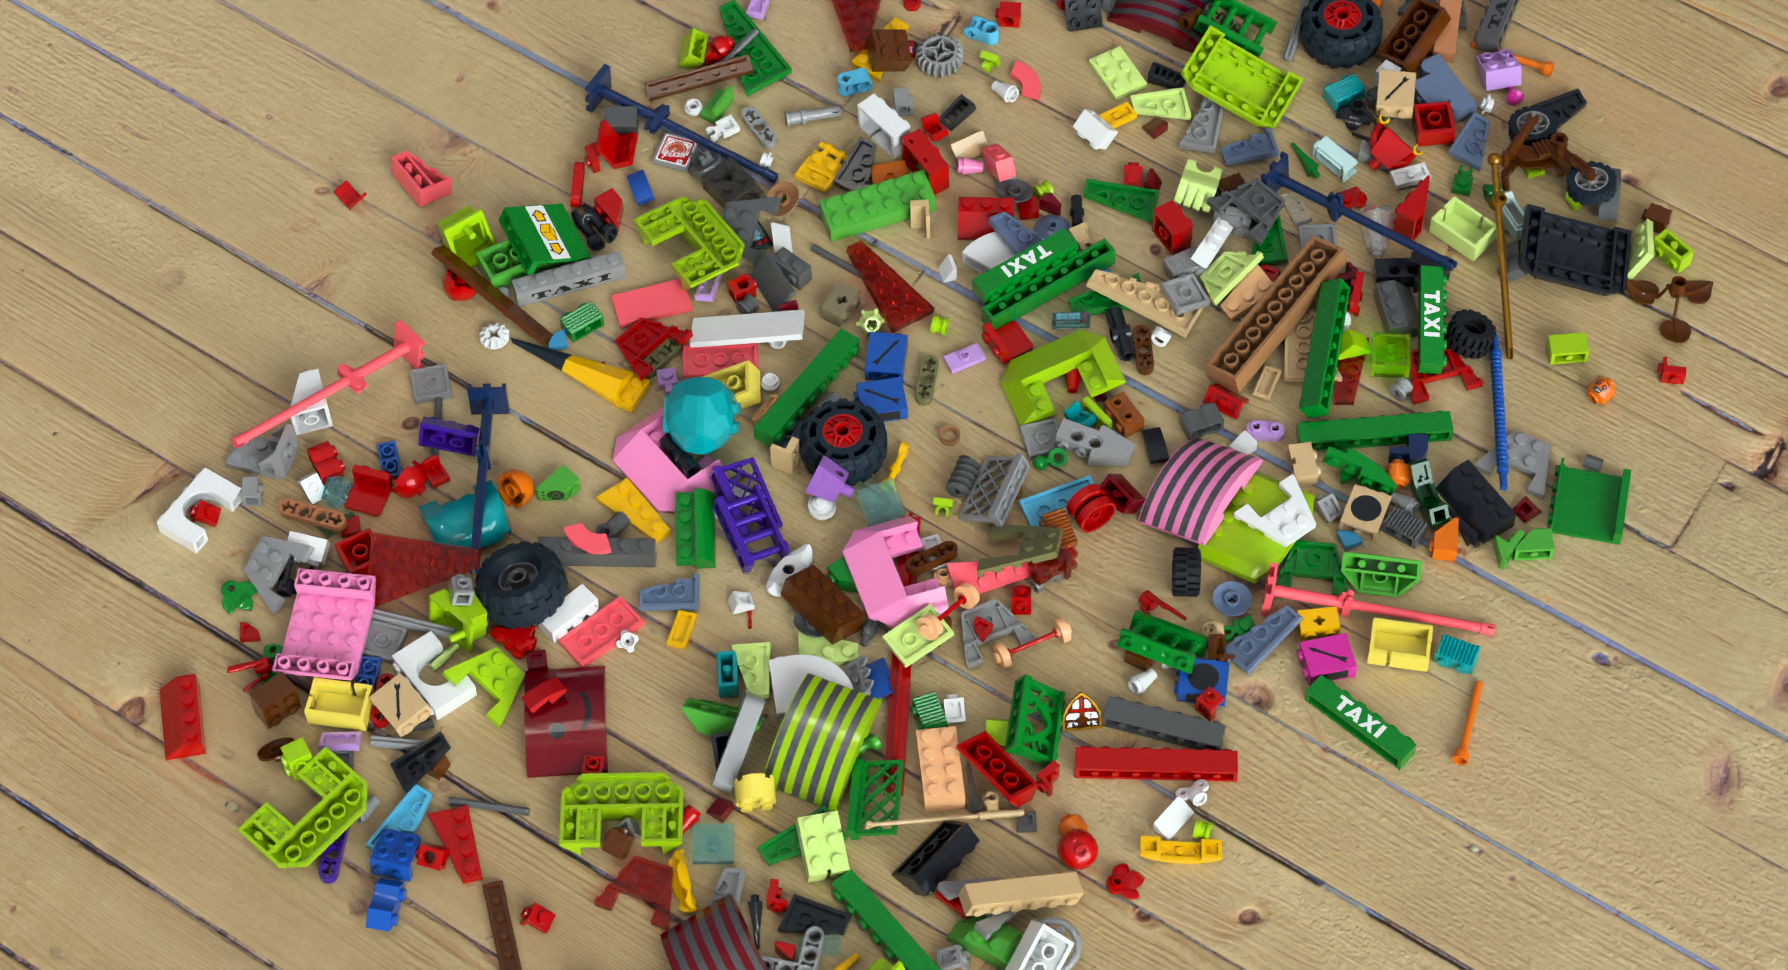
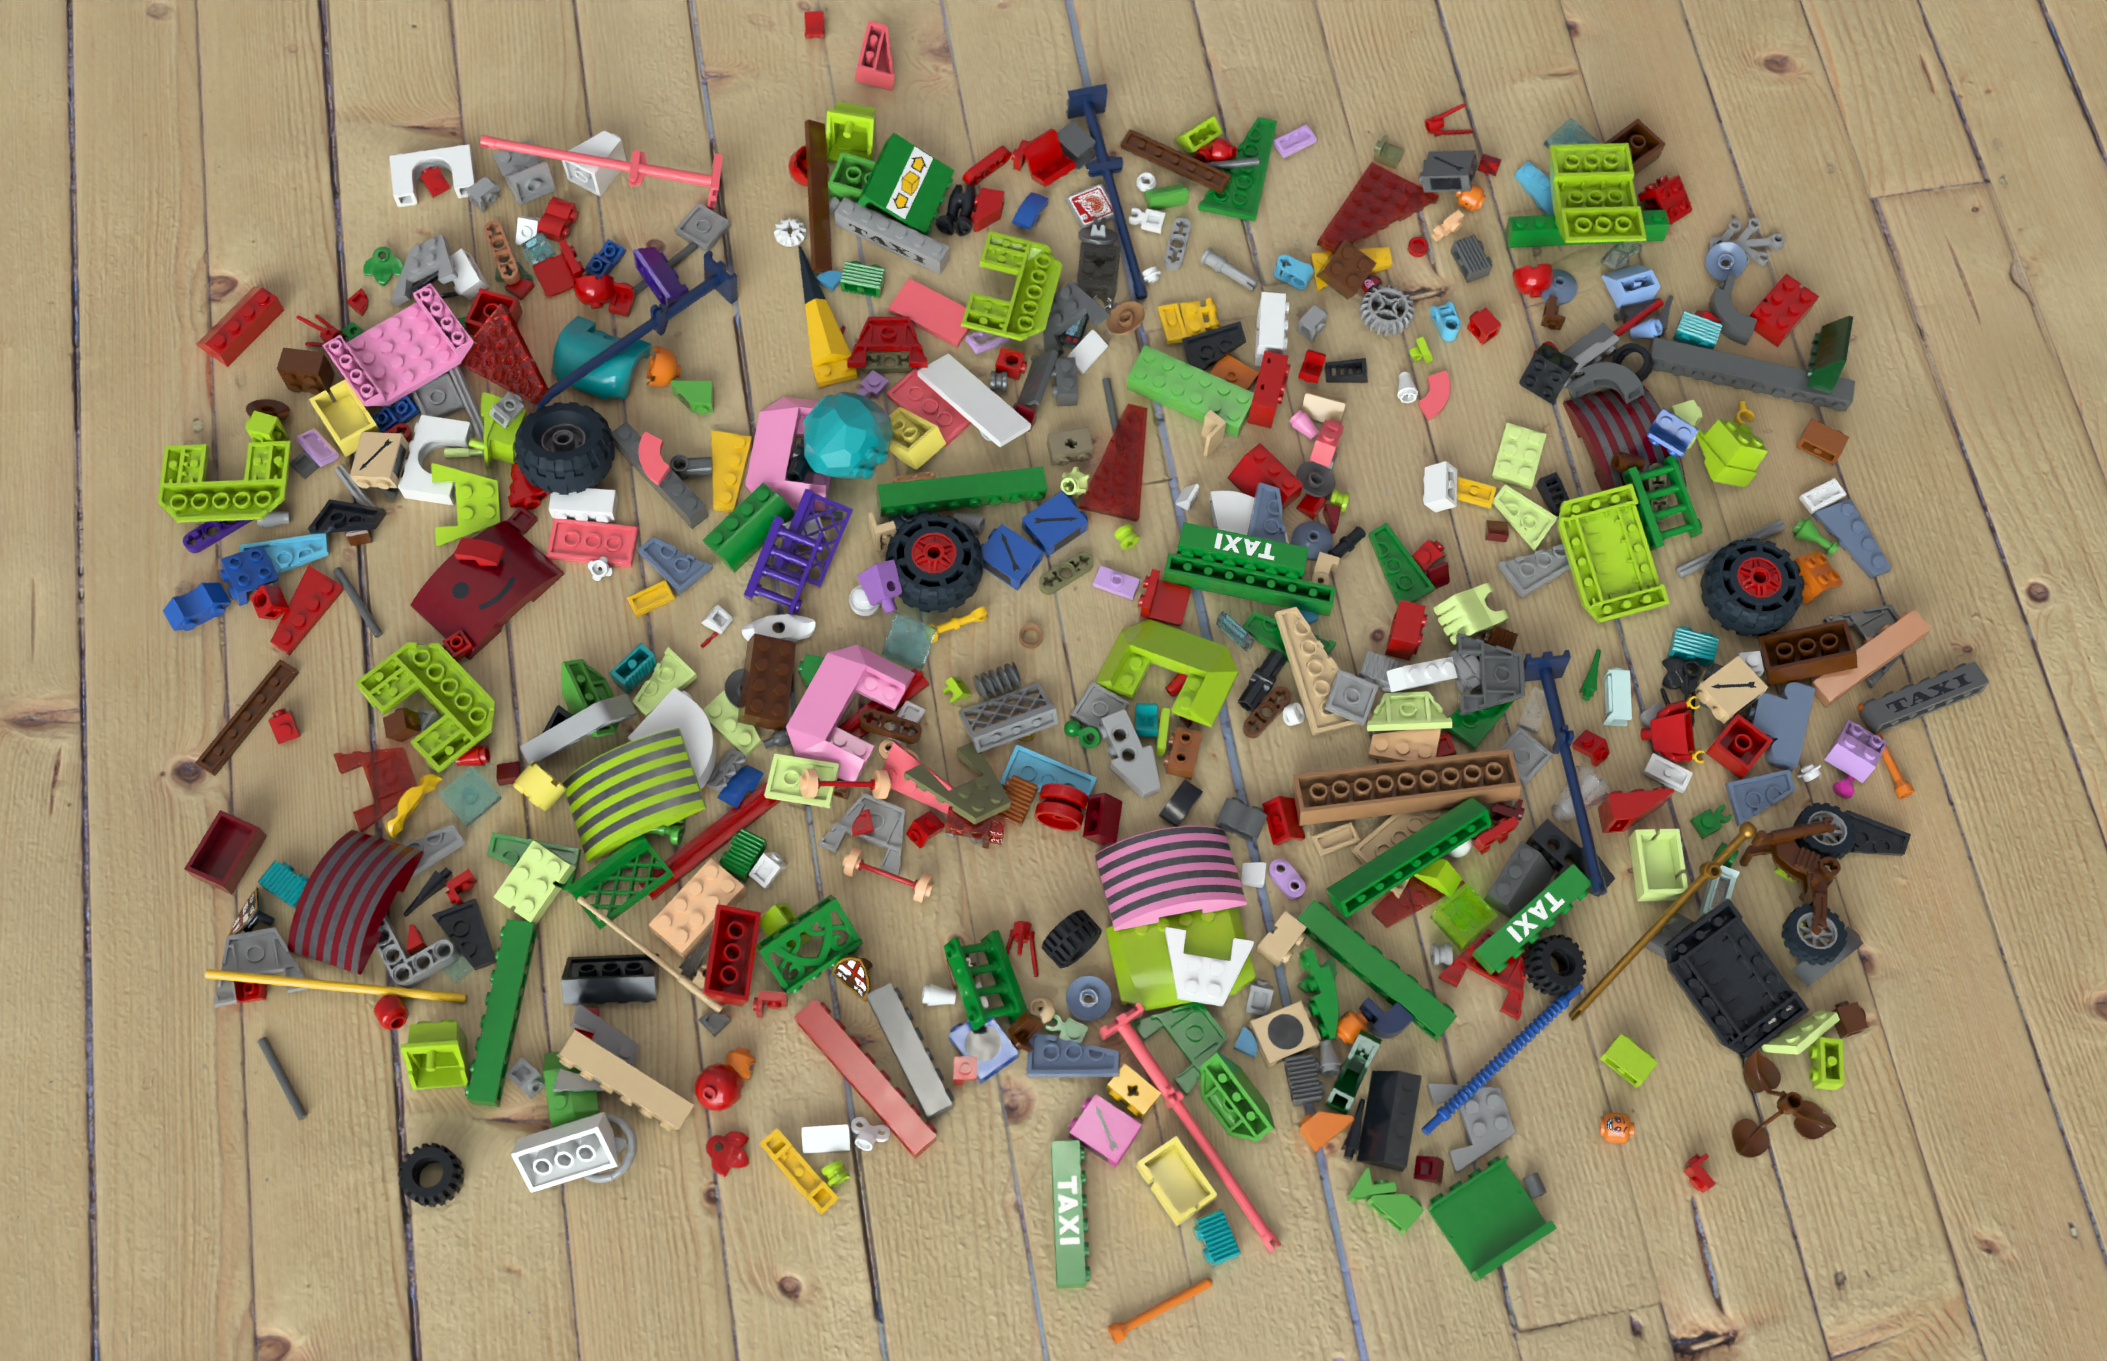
camera: 40 degrees right, 10 degrees up
(770, 382) = (945, 460): white plate -> none
(1255, 148) = (1559, 625): sand blue wing -> none

